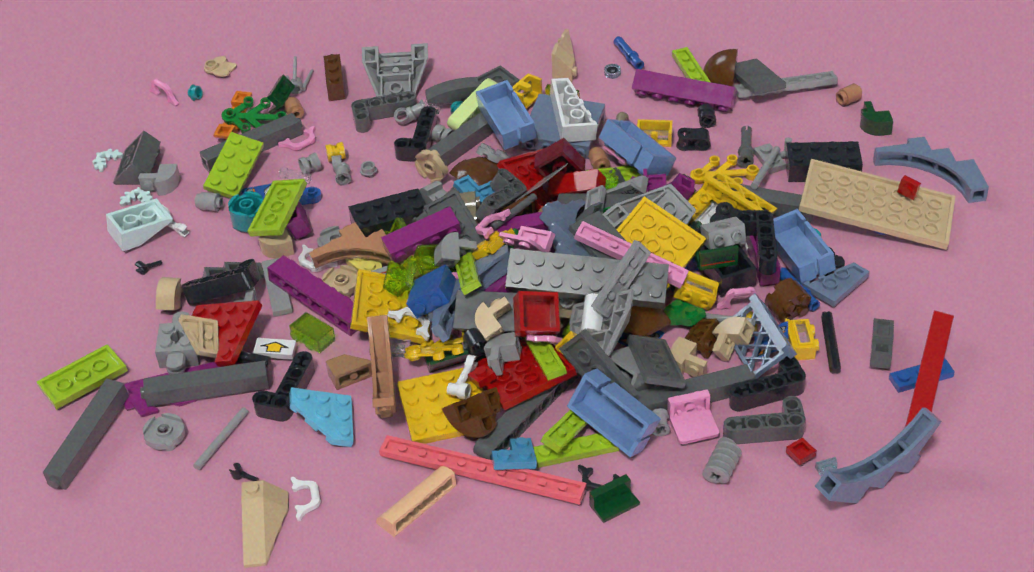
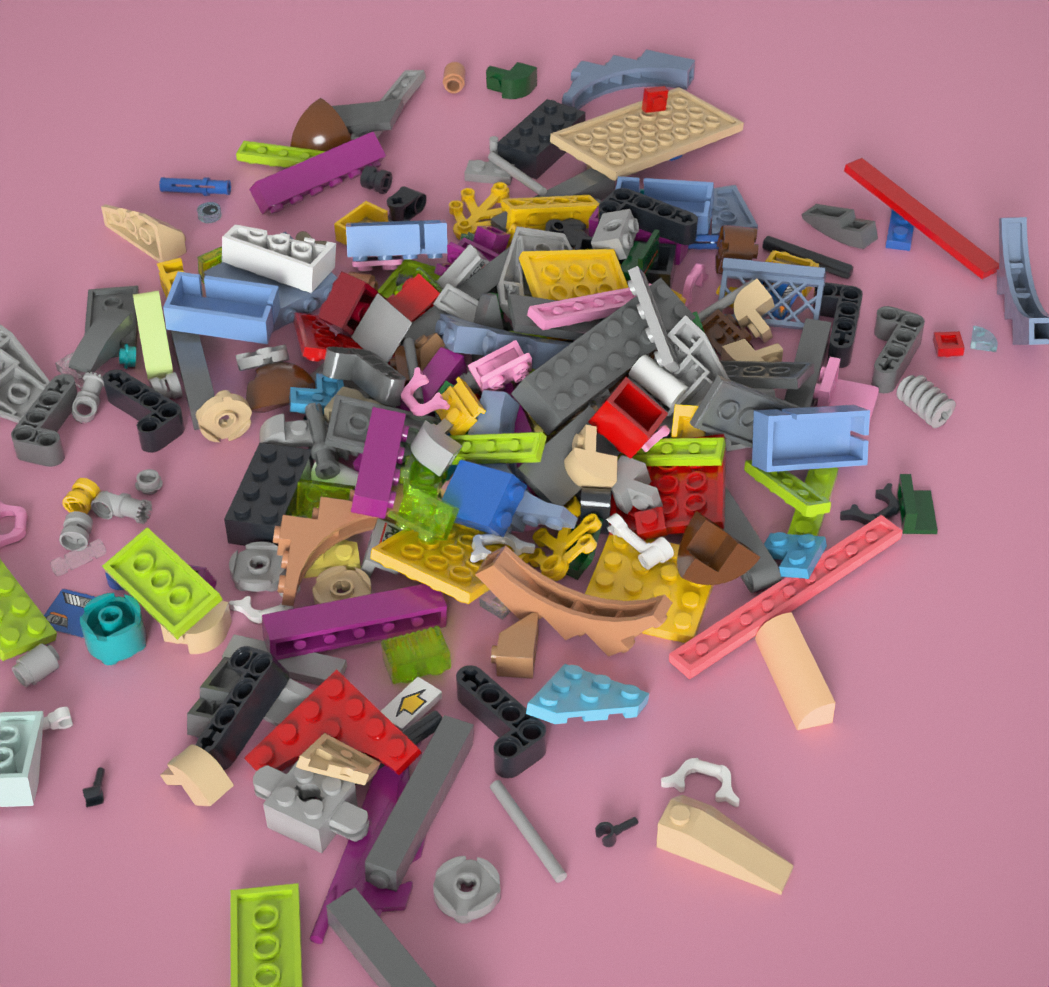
camera: 60 degrees left, 0 degrees up
(745, 150) = (461, 179): dark grey pin -> none

